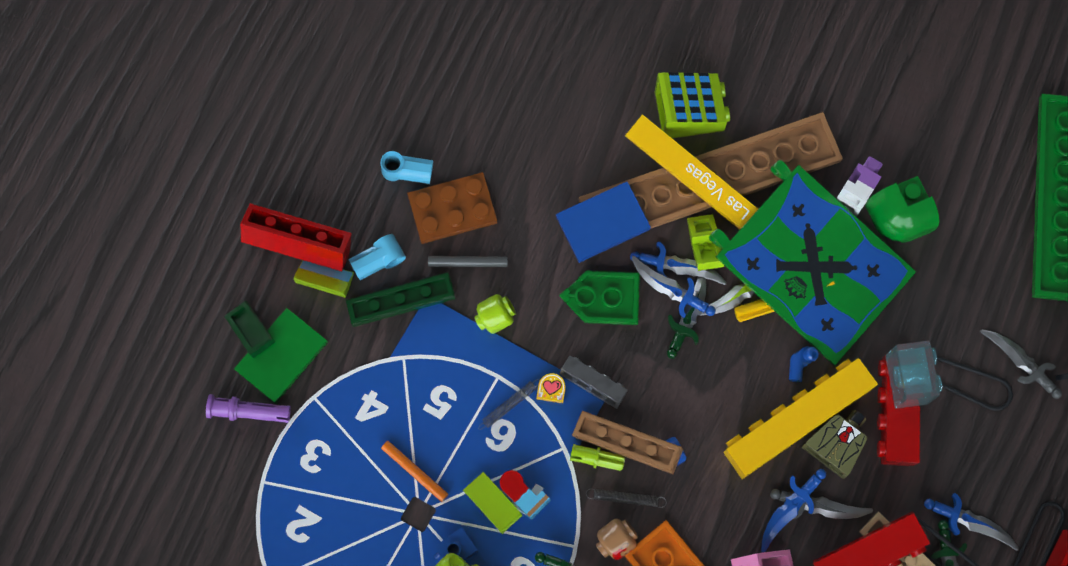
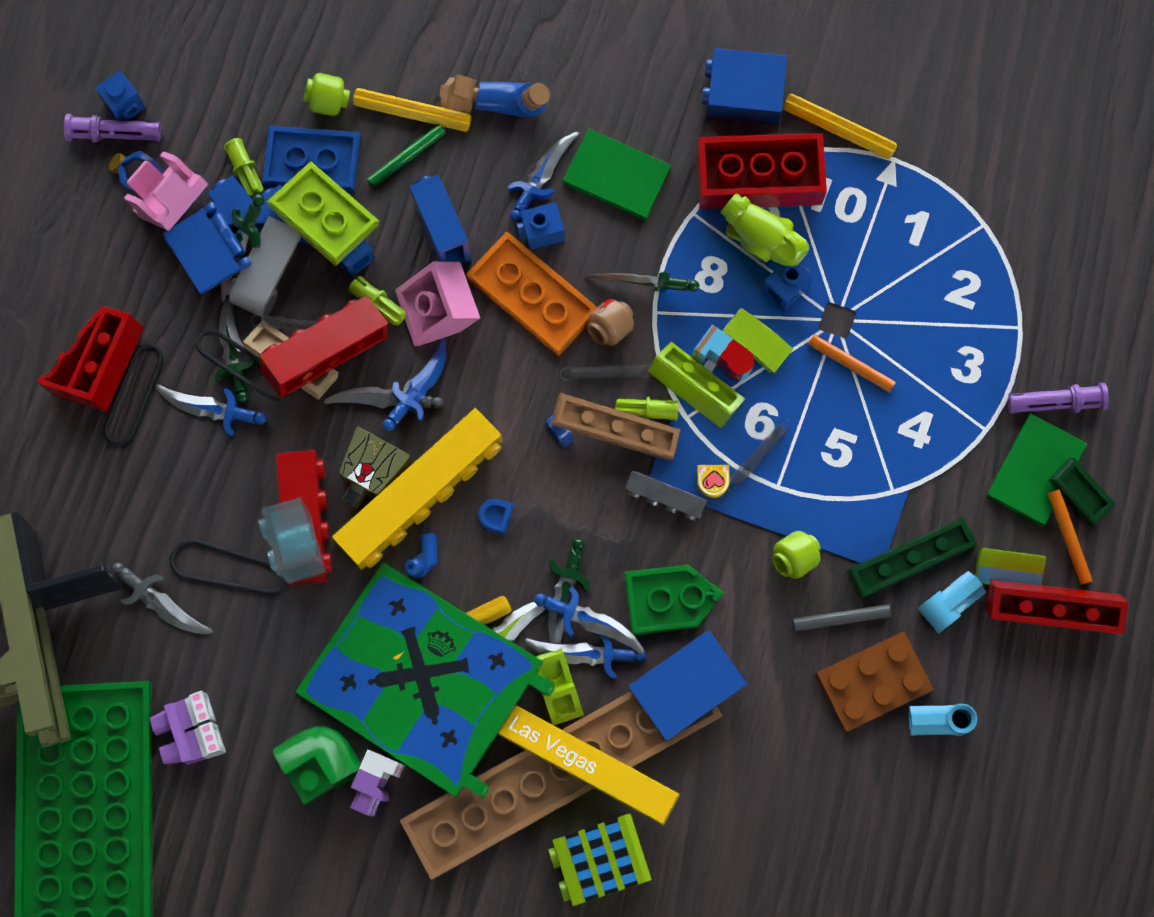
camera: 170 degrees right, 0 degrees up
(268, 292) = (1070, 537): none -> orange bar
(550, 474) = (695, 384): none -> lime slope
(737, 388) = (495, 515): none -> blue tile
(1002, 253) = (192, 729): none -> hips

